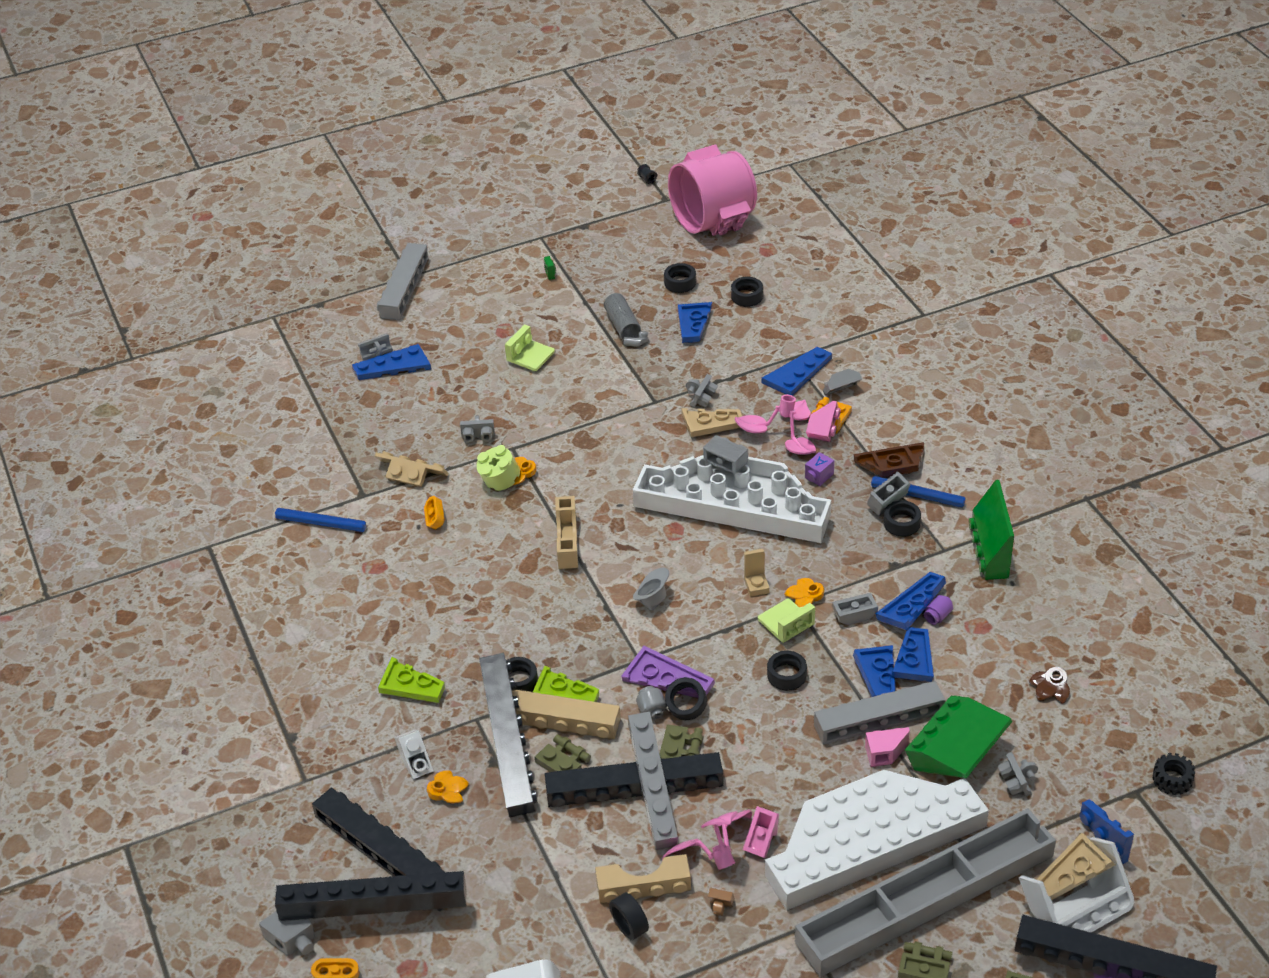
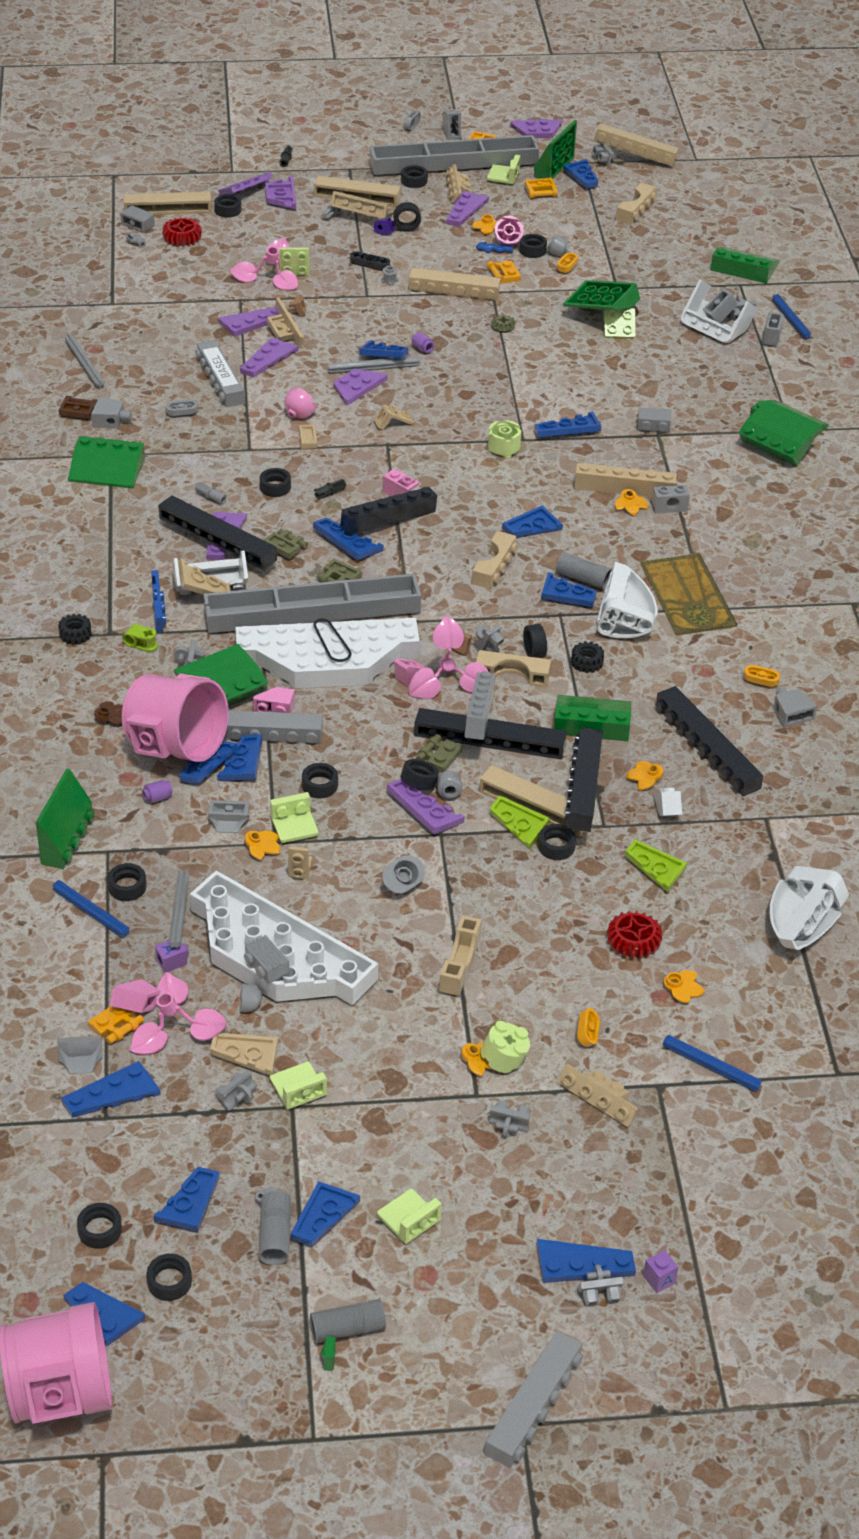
camera: 165 degrees left, 0 degrees up
(251, 666) = (806, 905): none -> white panel
(332, 364) = (660, 1271): none -> medium lavender brick
(358, 576) = (683, 985): none -> light orange plate
(370, 896) = (727, 686): black brick -> none
(413, 603) = (634, 934): none -> red gear
(527, 844) = (593, 713): none -> green slope
(546, 283) = (348, 1320): none -> light grey piece
(554, 759) = (545, 770): olive plate -> none
(559, 941) = (582, 651): none -> black tyre
(595, 338) = (323, 1210): none -> blue wing
(649, 175) = (106, 1508): black bush -> none
(652, 407) = (299, 1085): none -> yellowish green bracket
(685, 900) = (489, 638): none -> light grey hips
(713, 253) = (114, 1315): none -> blue wing
(837, 500) = (179, 909): none -> light grey axle
(858, 825) = (334, 659): none -> black piece
(888, 492) = (126, 897): light grey brick -> none
(891, 460) = (91, 941): reddish brown wing -> none
(910, 604) = (185, 798): blue wing -> none
(960, 639) = (175, 716): none -> bright pink cylinder
(1093, 784) = (140, 638): none -> lime piece

